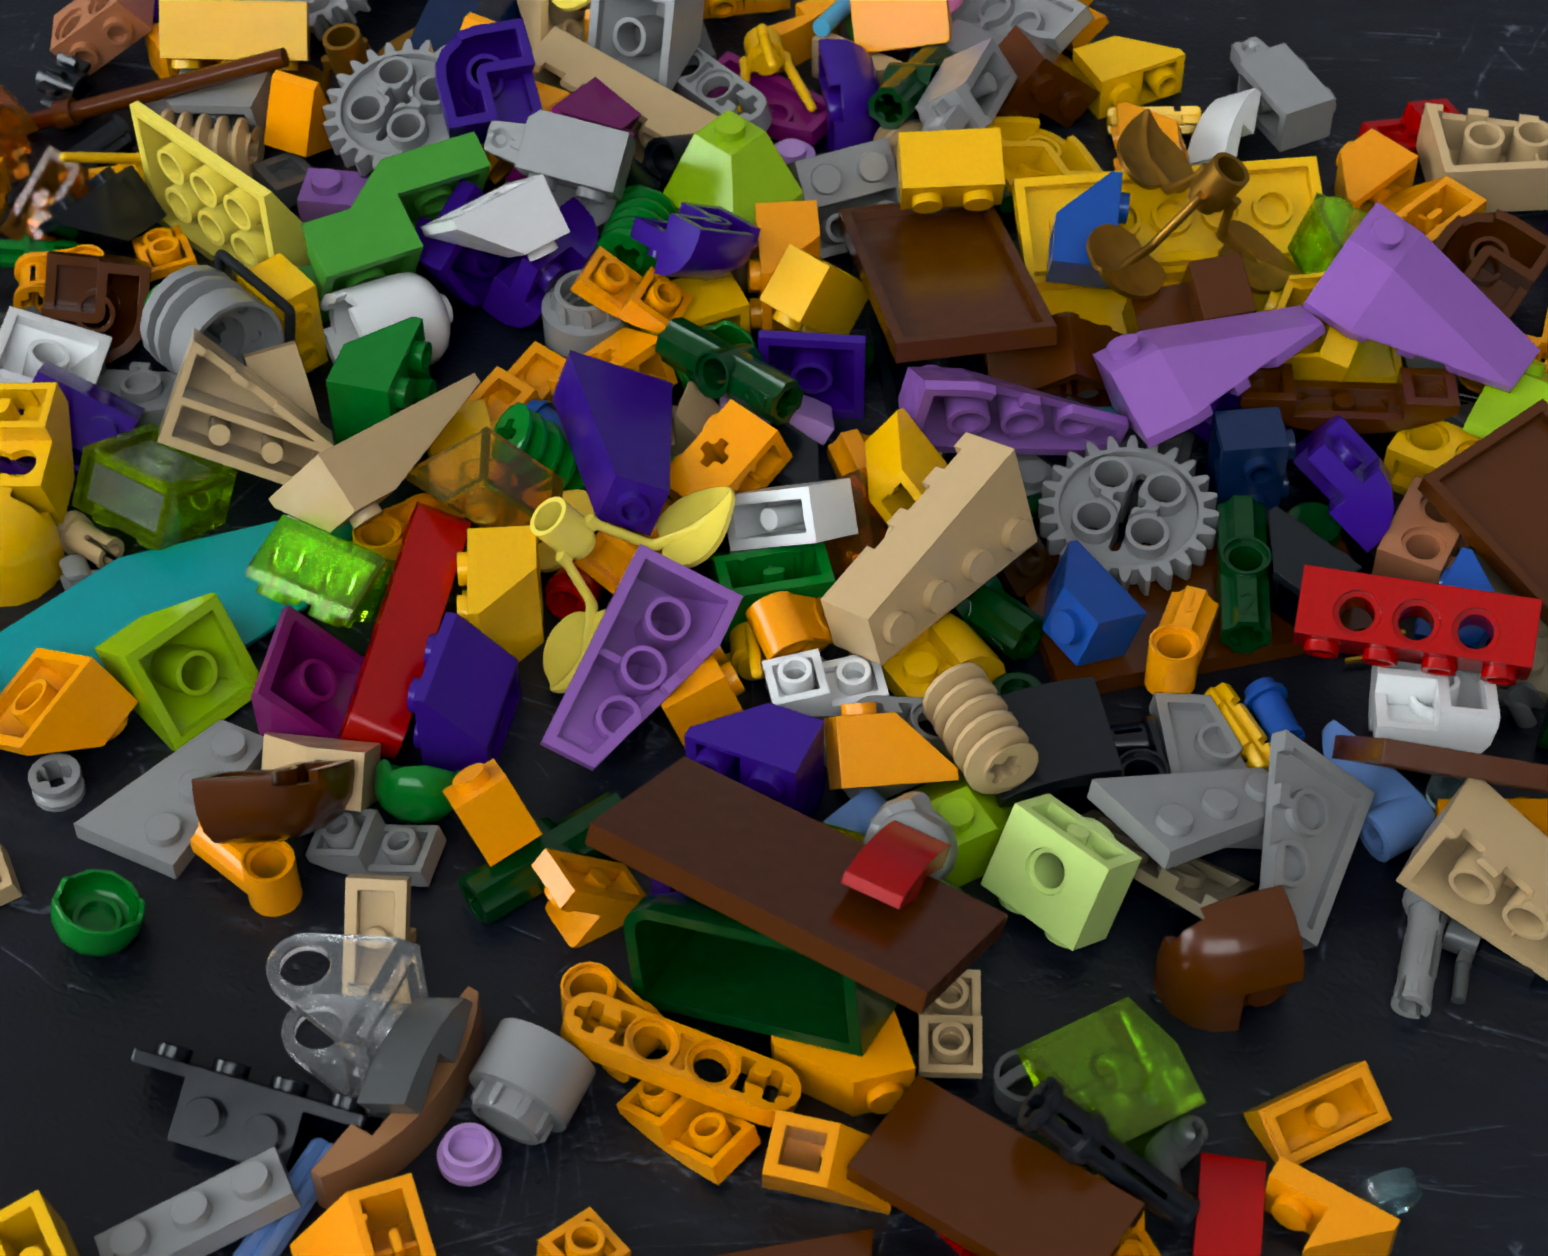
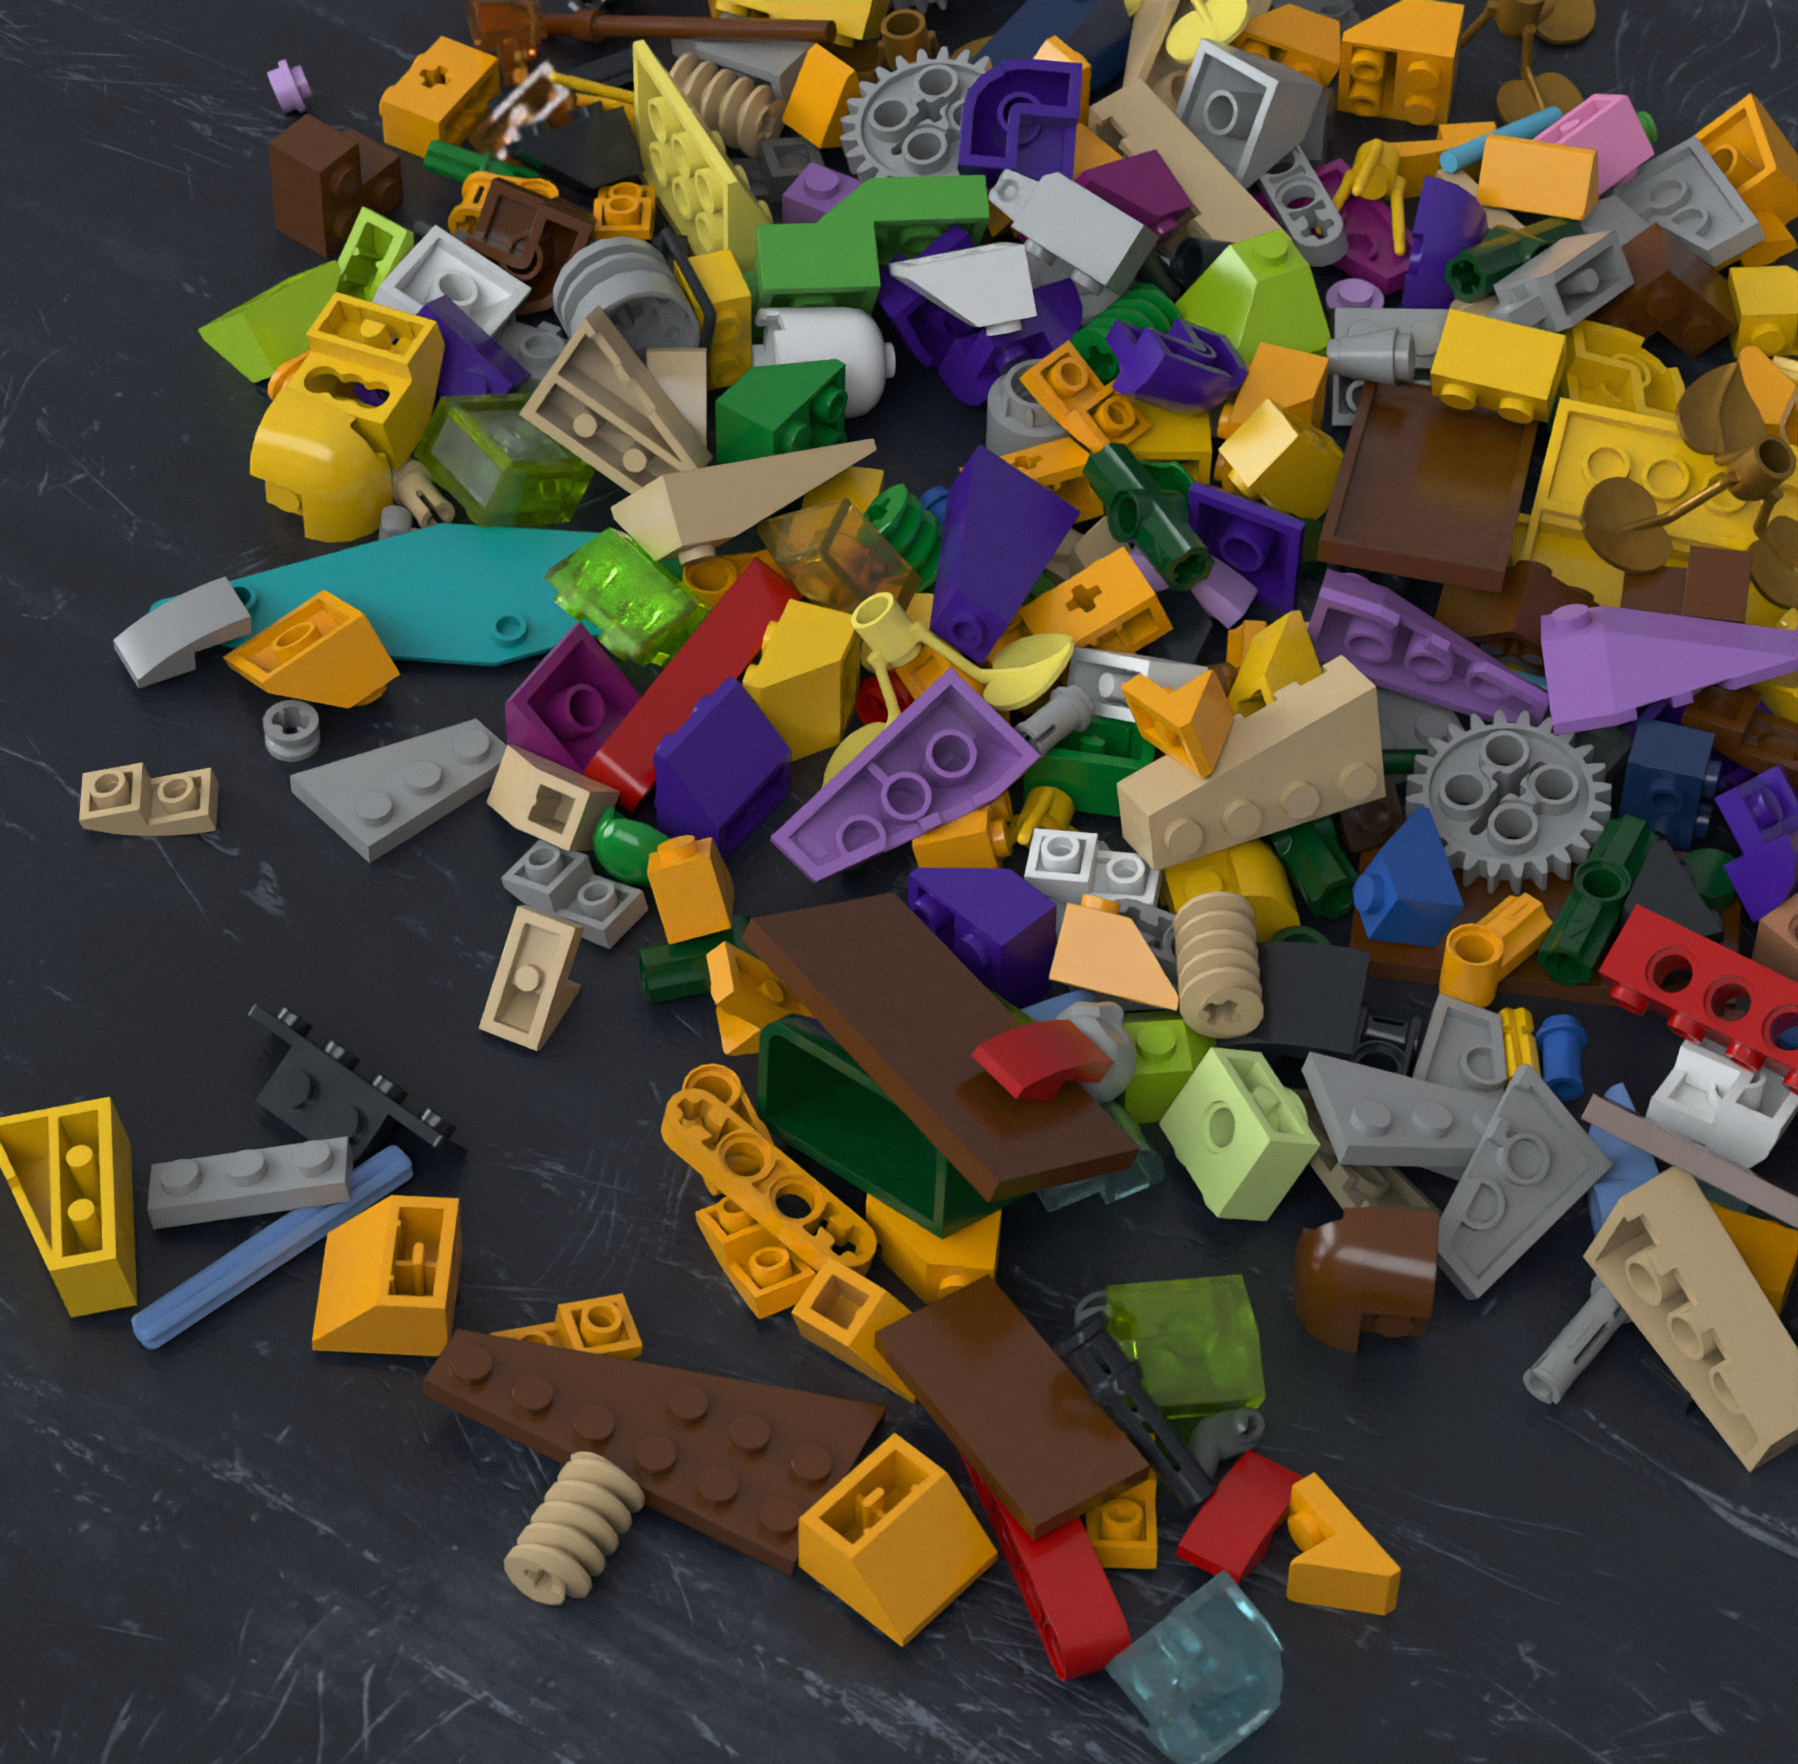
camera: 20 degrees right, 0 degrees up
(97, 912) = (276, 866): green hair -> none
(182, 667) = (455, 653): lime slope -> none
(260, 869) = (444, 866): light orange piece -> none
(272, 802) = (480, 811): reddish brown brick -> none
(353, 1004) = (489, 1033): clear hose -> none
(367, 1159) = (506, 1152): medium nougat slope -> none
(405, 1062) = (528, 1080): dark grey slope -> none
(469, 1155) = (532, 1209): lavender plate -> none
(521, 382) = (938, 466): light orange slope -> none
(528, 1081) = (615, 1160): light grey piece -> none
(745, 553) = (1065, 712): none -> light grey pin
(788, 624) = (1080, 801): light orange piece -> none
(844, 190) = (1374, 356): none -> light grey cone
(862, 532) = (1184, 722): none -> light orange slope
(953, 1031) = (1061, 1249): tan slope -> none
(1073, 224) = (1635, 455): blue slope -> none
(1319, 1114) = (1391, 1457): light orange slope -> none
(1391, 1190) = (1415, 1547): clear light blue tile -> none
(1463, 943) = (1632, 1346): dark grey hand -> none

